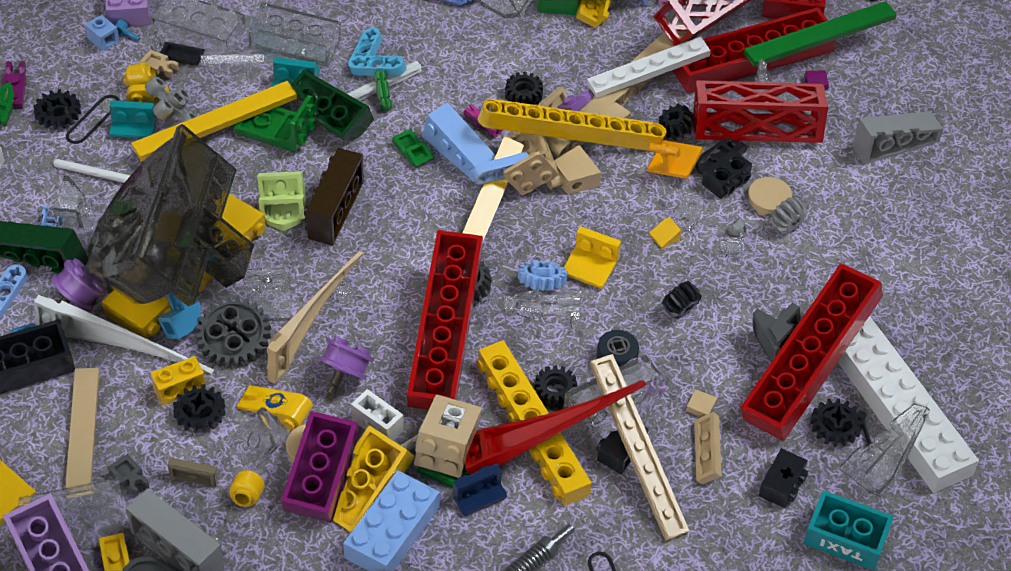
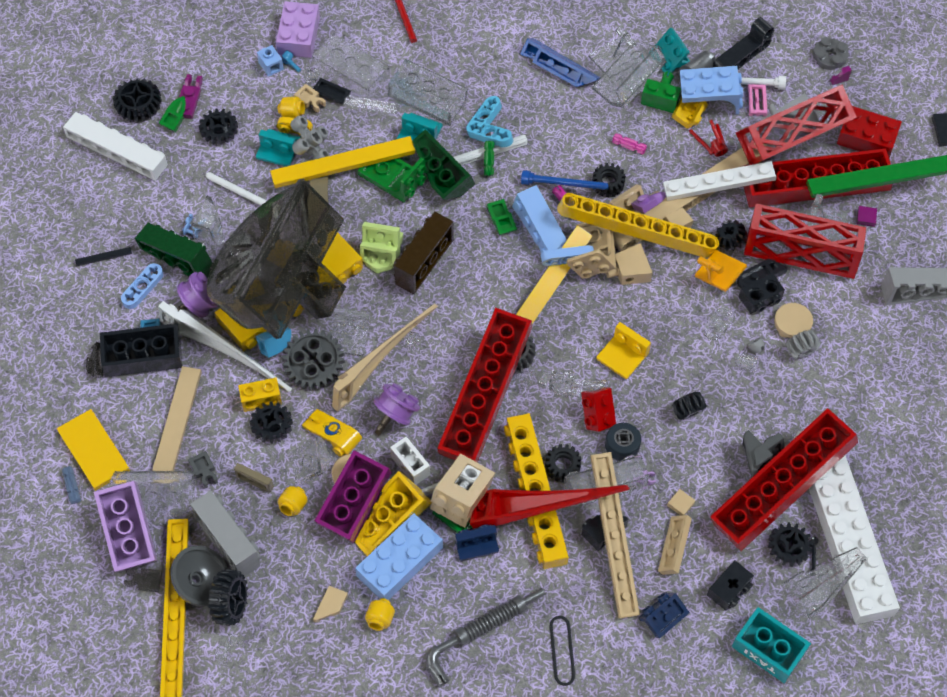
camera: 15 degrees right, 10 degrees up
(96, 126) = (231, 158): black piece -> none
(433, 102) = (529, 178): none -> blue piece
(536, 51) = (629, 143): none -> dark pink axle
(542, 275) = (578, 358): light blue gear -> none
(580, 322) = (598, 409): none -> red bracket
(634, 37) = (718, 145): none -> red plant
(666, 233) = (694, 338): yellow slope -> none
(717, 523) = (664, 613): none -> dark blue bracket

